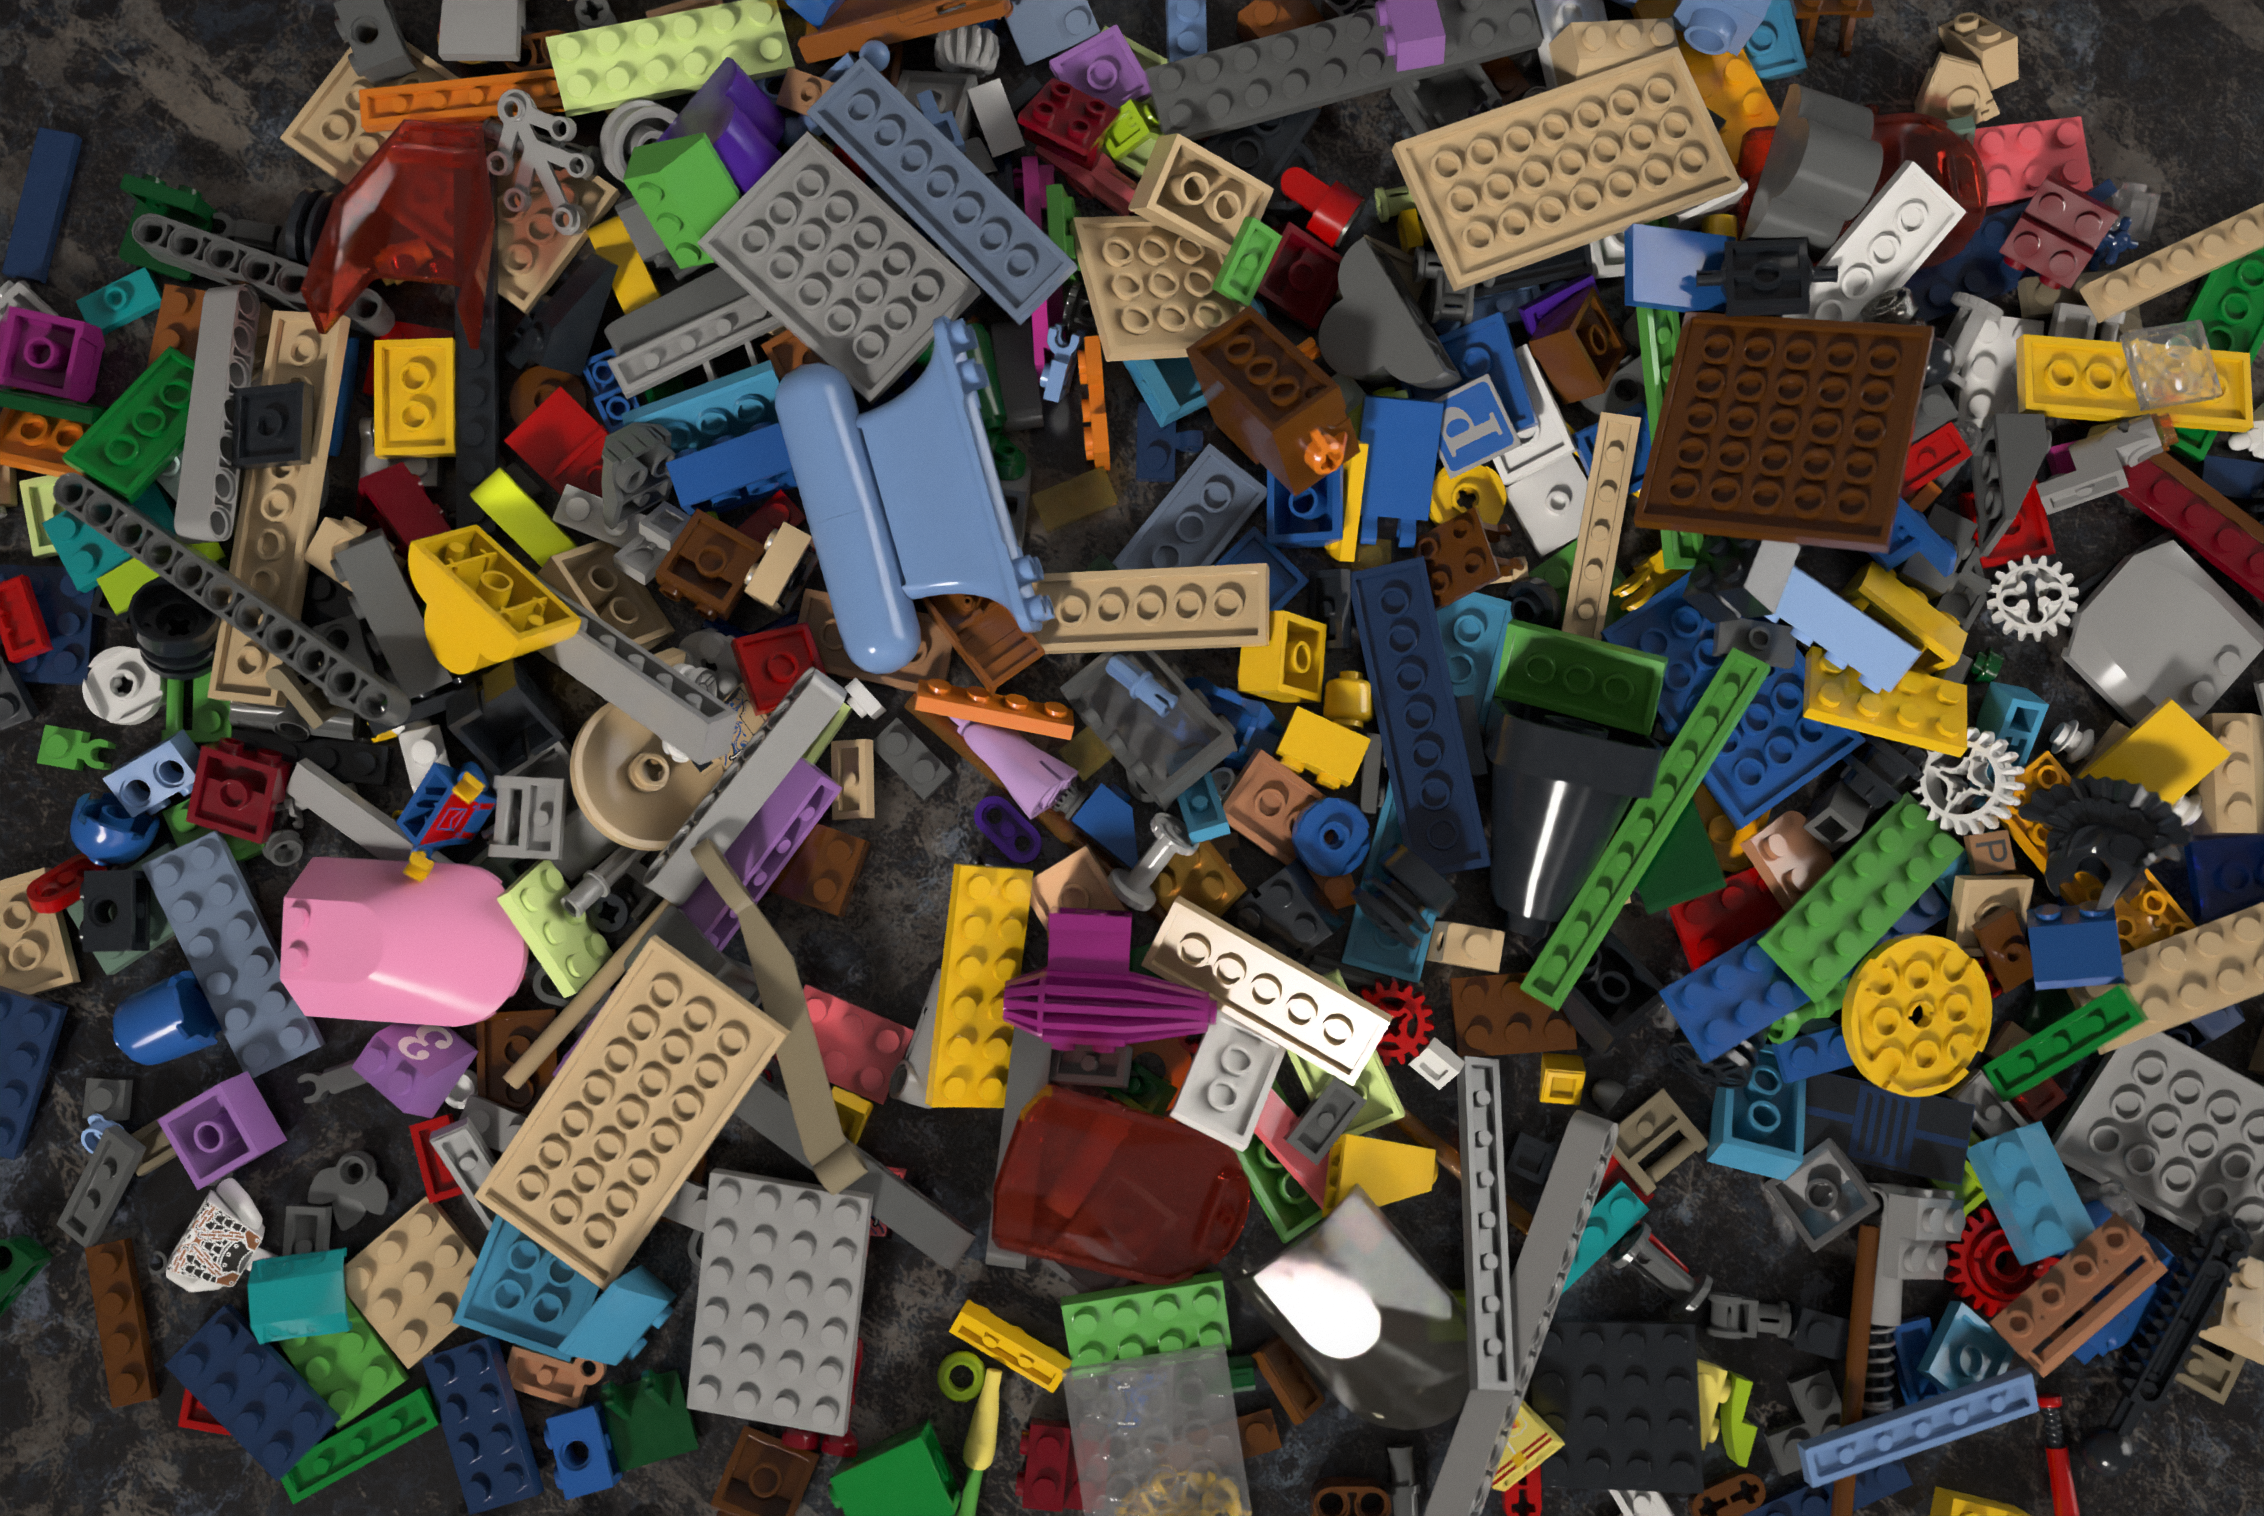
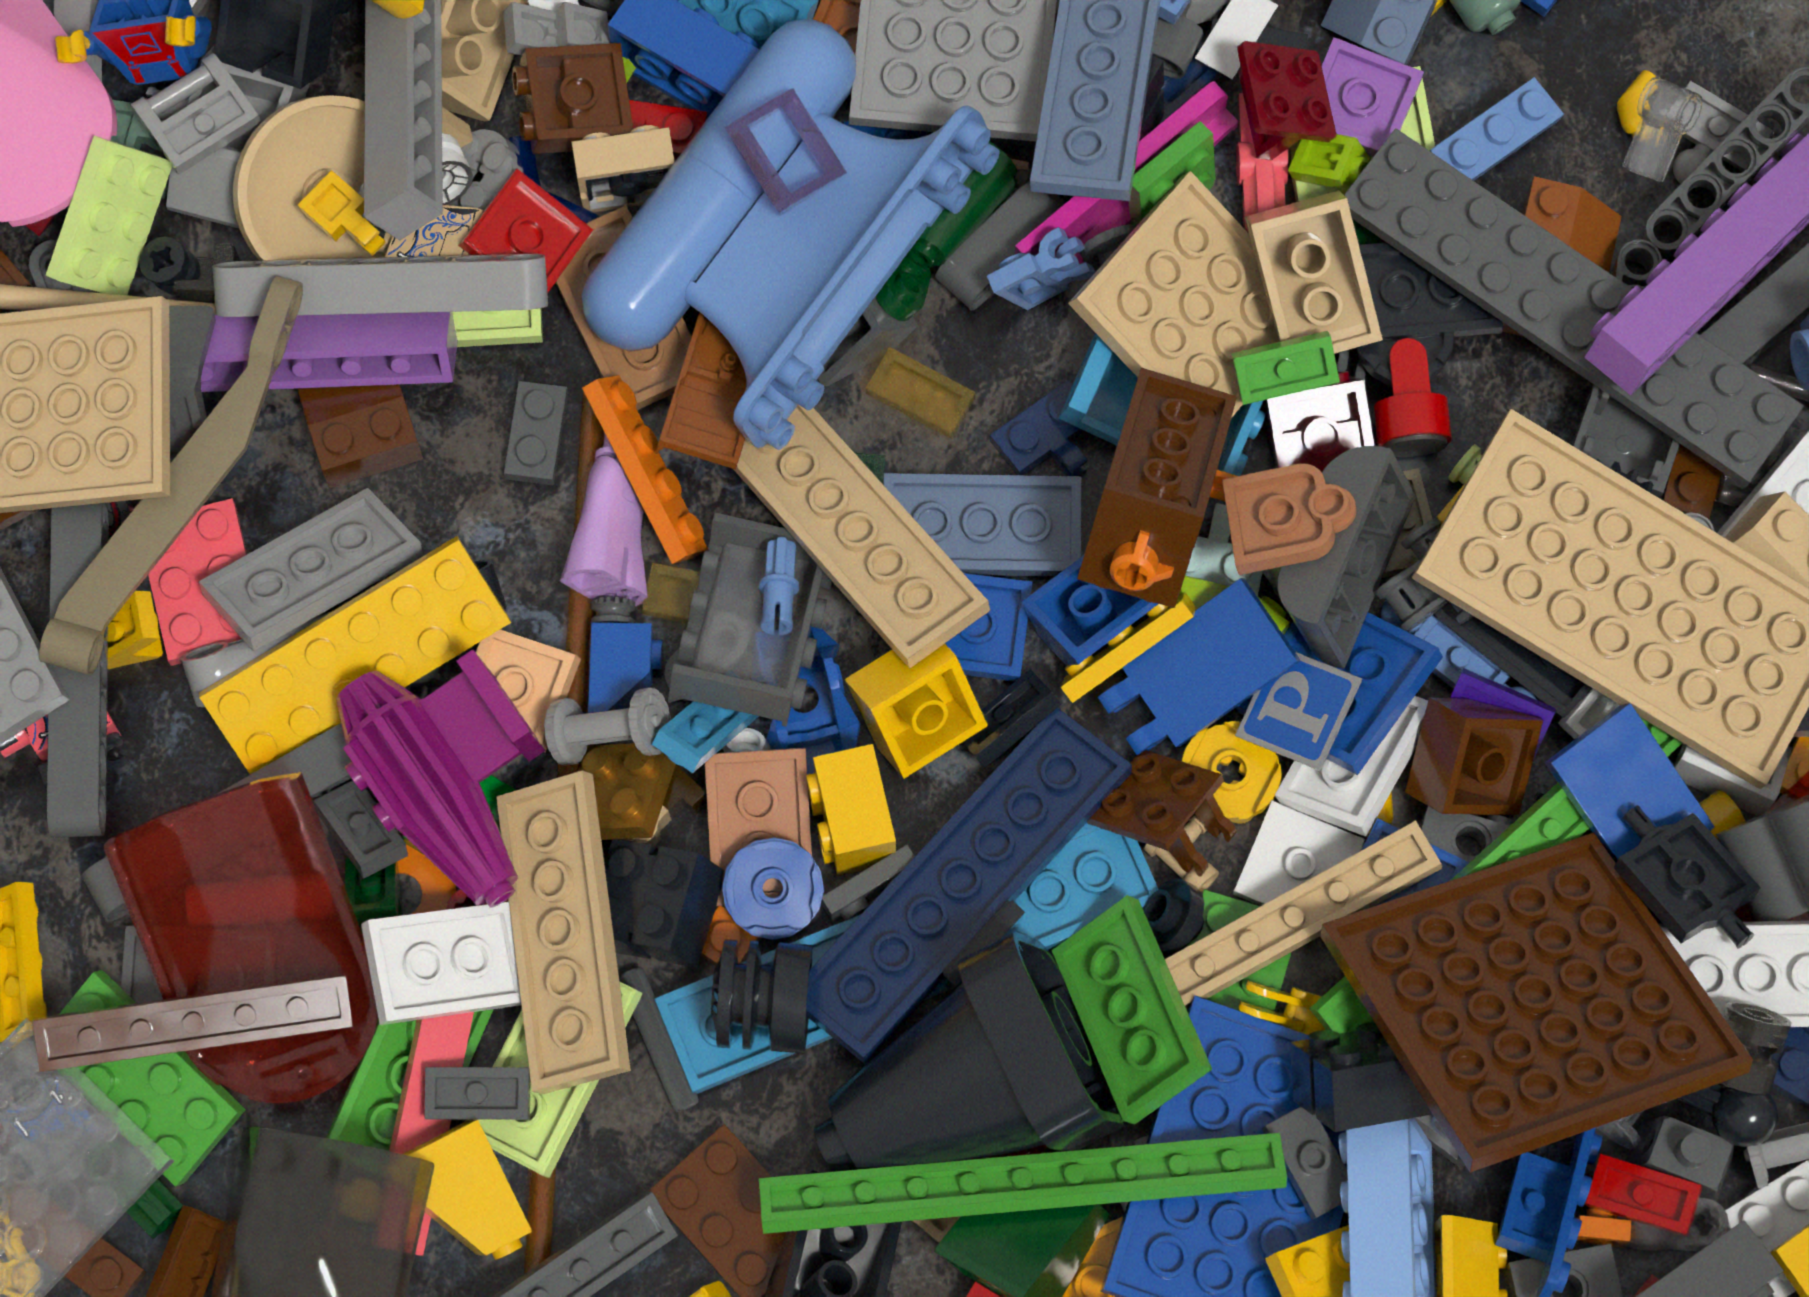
camera: 50 degrees right, 10 degrees down
(598, 882) = (187, 226): light grey axle -> none
(670, 775) = (339, 210): none -> yellow plate
(854, 771) = (473, 391): tan plate -> none
(863, 701) = (558, 343): white plate -> none
(870, 482) = (761, 166): none -> clear purple tile
(897, 971) = (310, 569): none -> light grey plate
(1008, 830) = (535, 577): dark purple plate -> none
(1094, 407) = (1003, 359): orange plate -> none
(1148, 1270) = (192, 1022): none -> plate
(1348, 700) = (925, 805): yellow head -> none
(1355, 336) = (1284, 516): none -> nougat plate
(1371, 556) = (1096, 719): clear yellow plate -> none
(1403, 1012) = (629, 1111): red gear -> none
(1437, 1063) = (624, 1172): white plate -> none
(1466, 946) = (770, 1116): tan torso -> none

